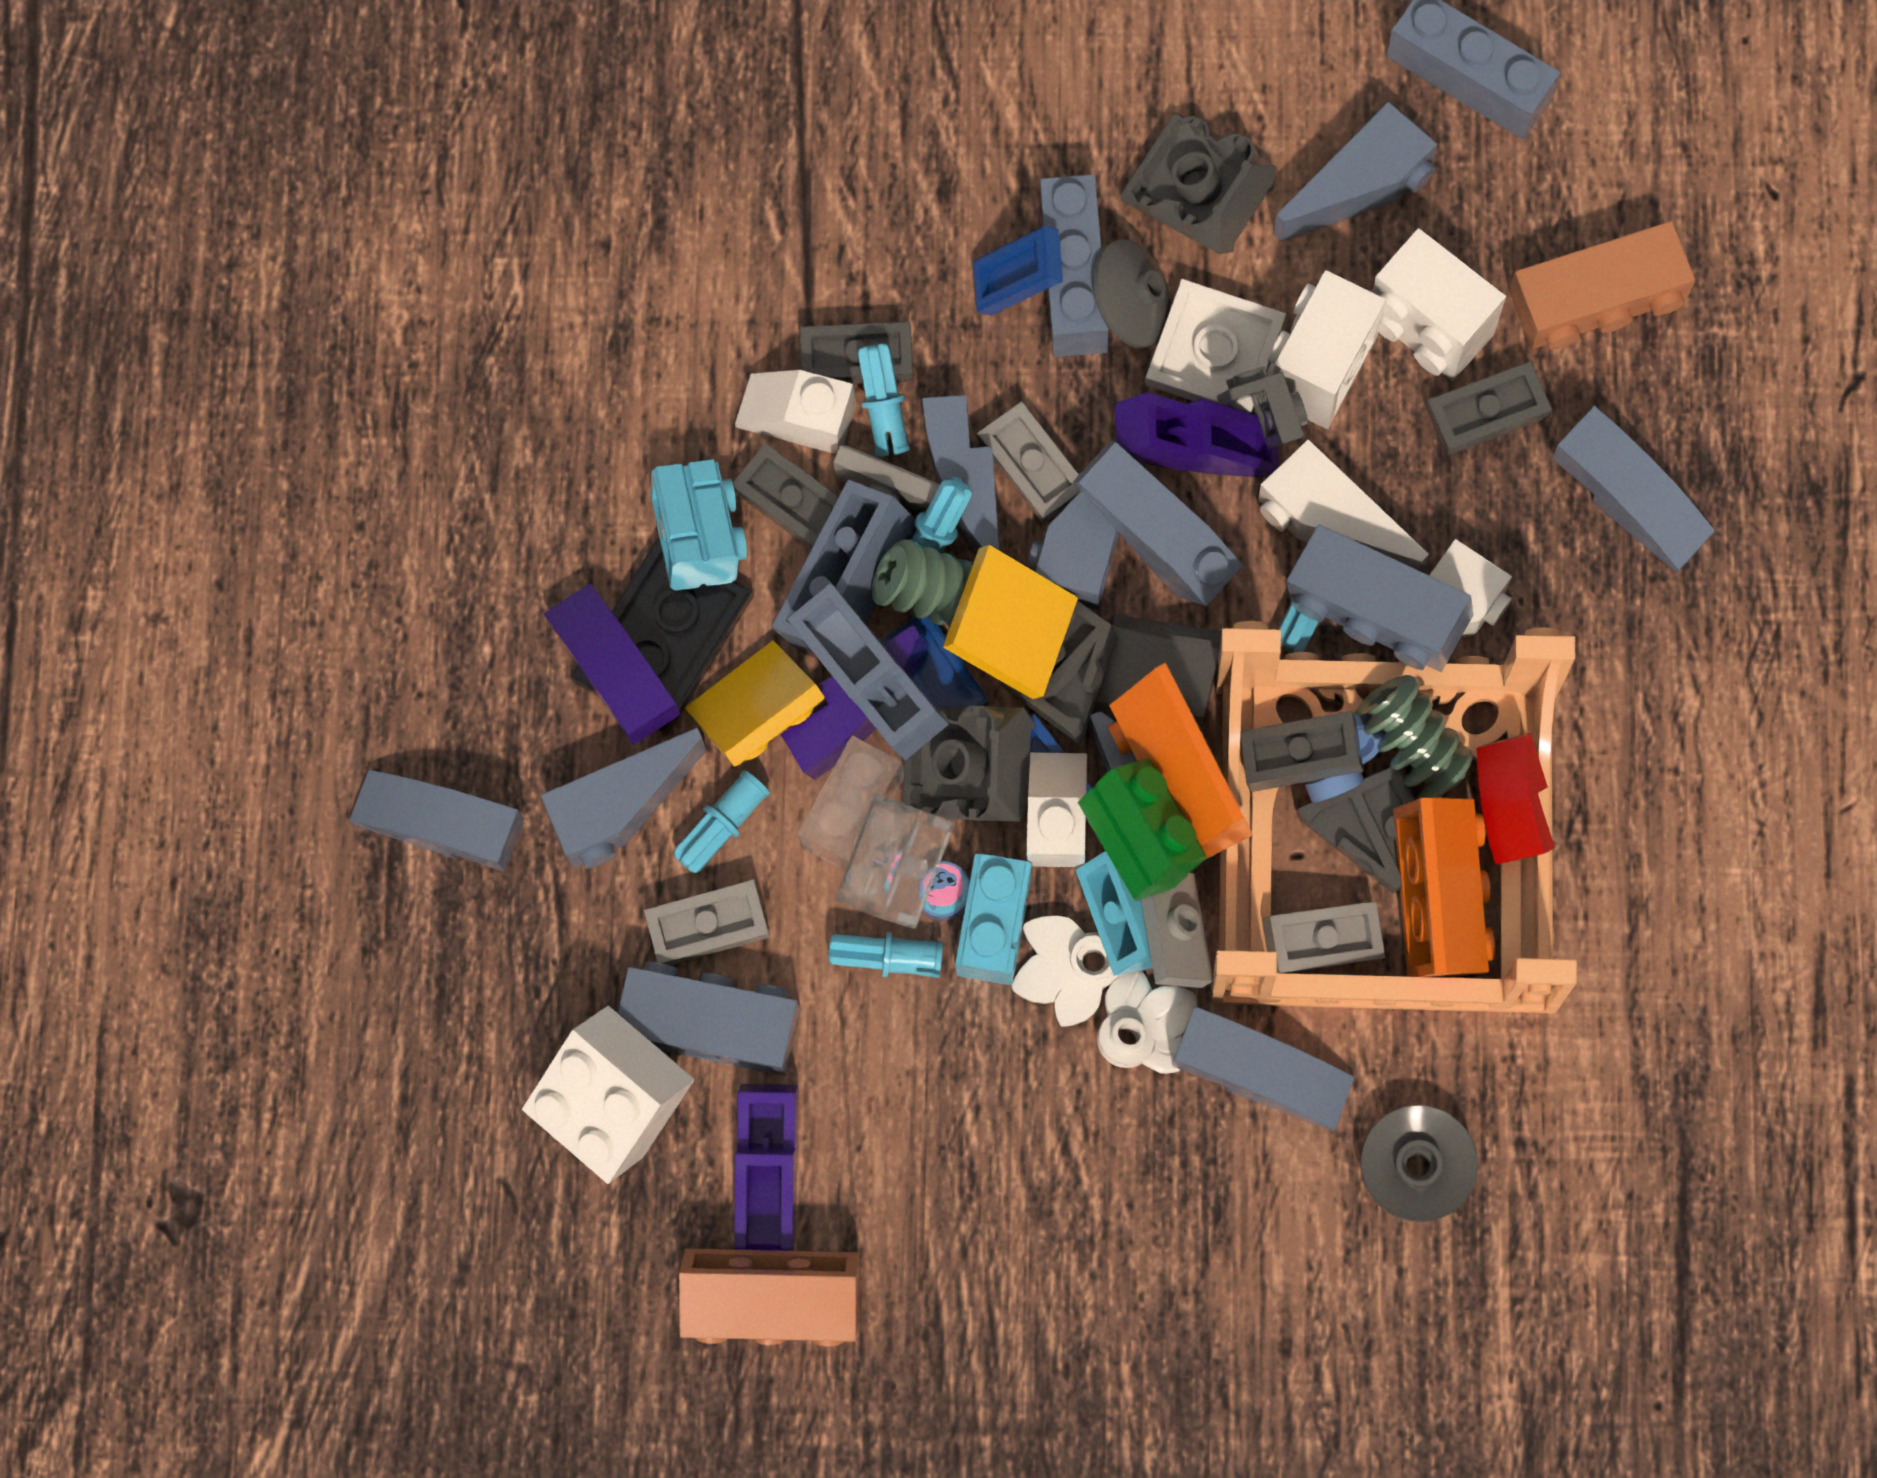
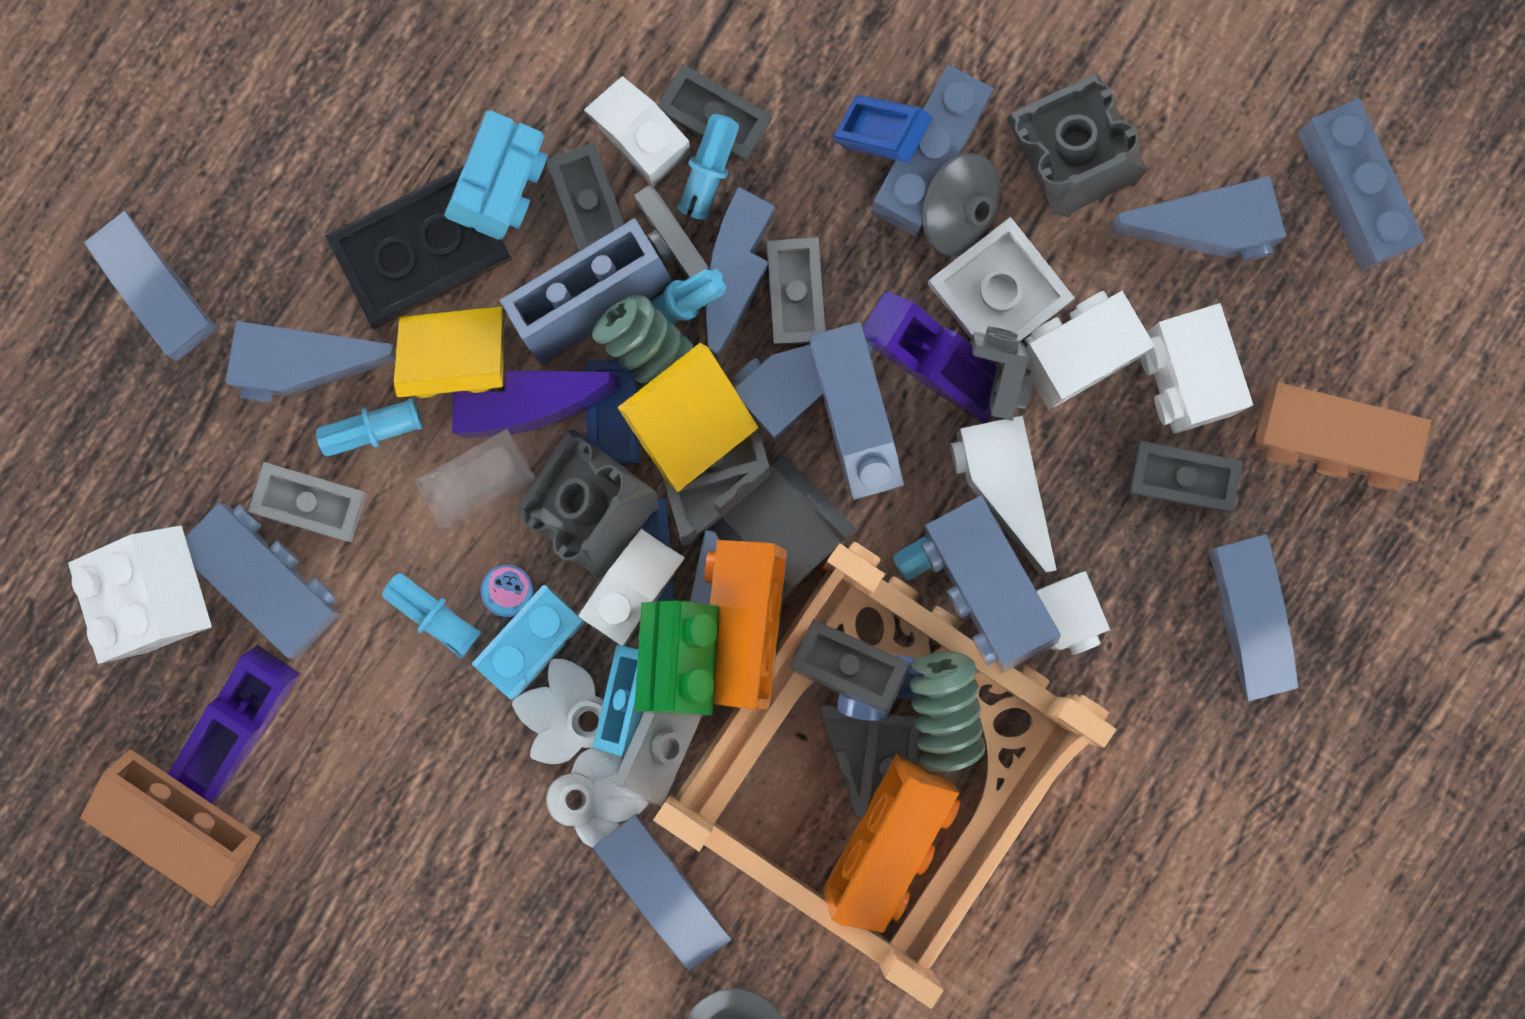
camera: 20 degrees right, 10 degrees up
(612, 664) = (358, 249): dark purple slope -> none
(867, 672) = (546, 389): sand blue slope -> none
(894, 861) = (478, 549): clear brick -> none
(1324, 937) = (775, 820): light grey plate -> none
(1510, 801) = (992, 802): red slope -> none

